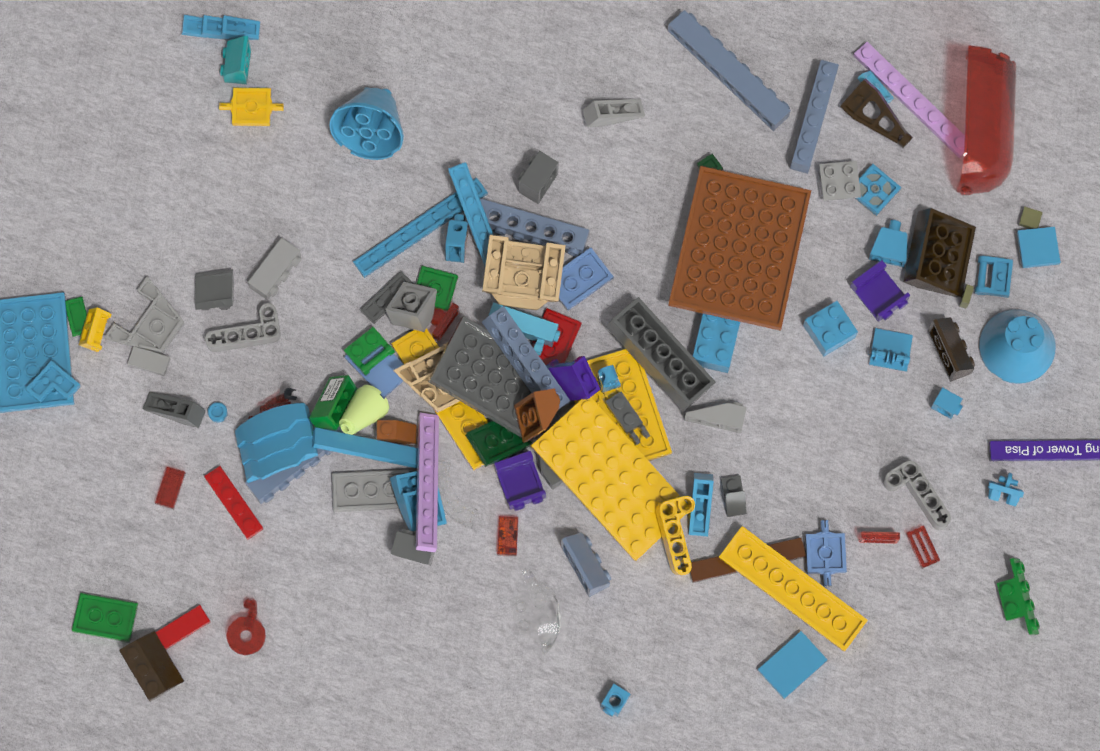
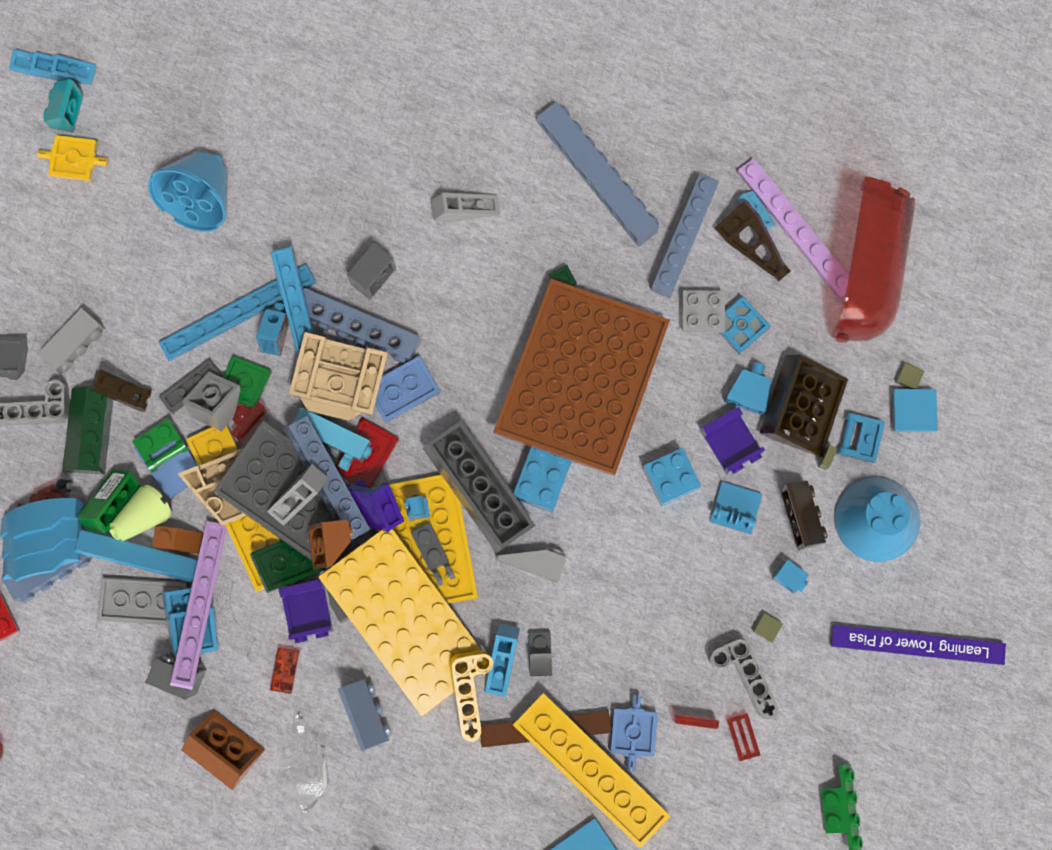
camera: 10 degrees right, 5 degrees up
(300, 345) = (87, 432): none -> dark green slope
(328, 306) = (120, 390): none -> dark brown plate
(462, 609) = (222, 749): none -> dark orange slope
(505, 375) = (298, 494): none -> light grey slope
(932, 450) = (768, 627): none -> olive tile
(1013, 493) = (852, 688): dark azure hips -> none

